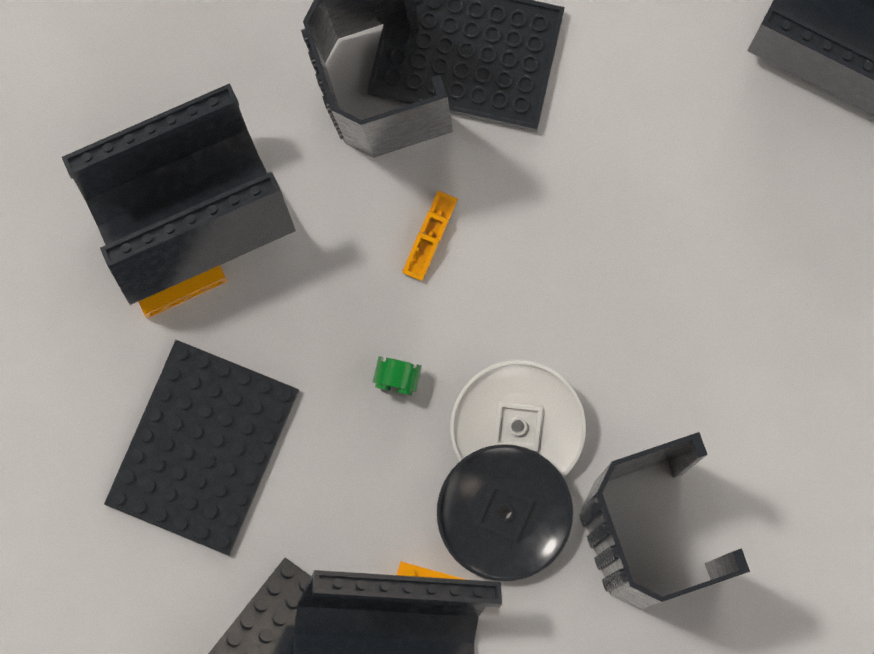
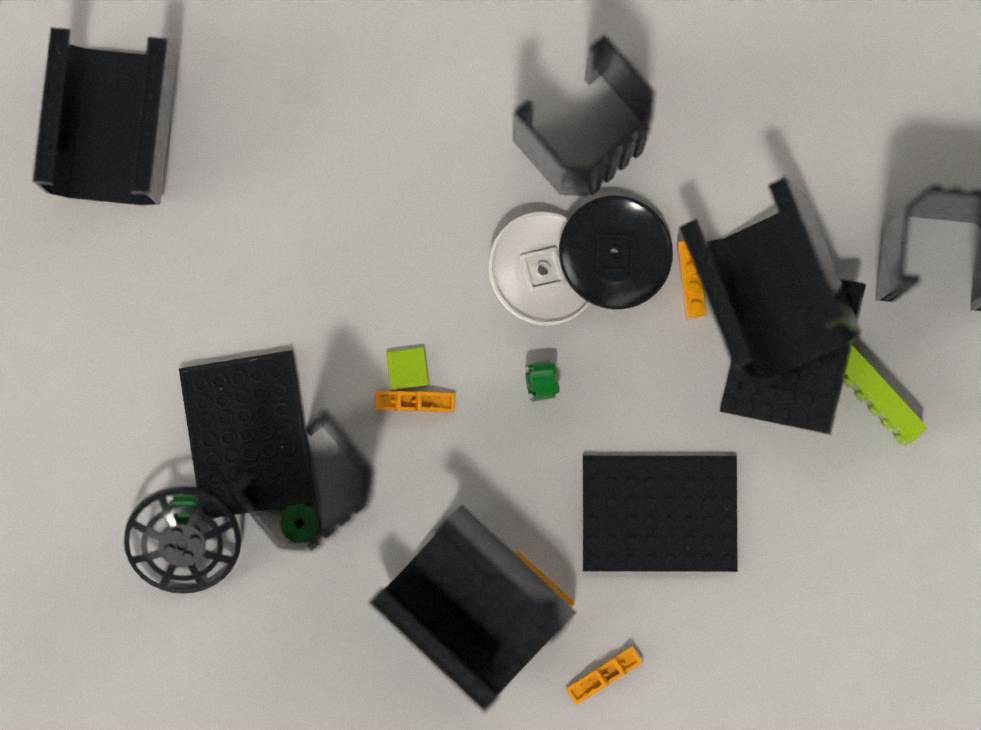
camera: 105 degrees left, 5 degrees up
(56, 317) = (604, 675): none -> light orange slope
(352, 78) = (305, 533): none -> green brick
(469, 242) = (407, 369): none -> lime tile

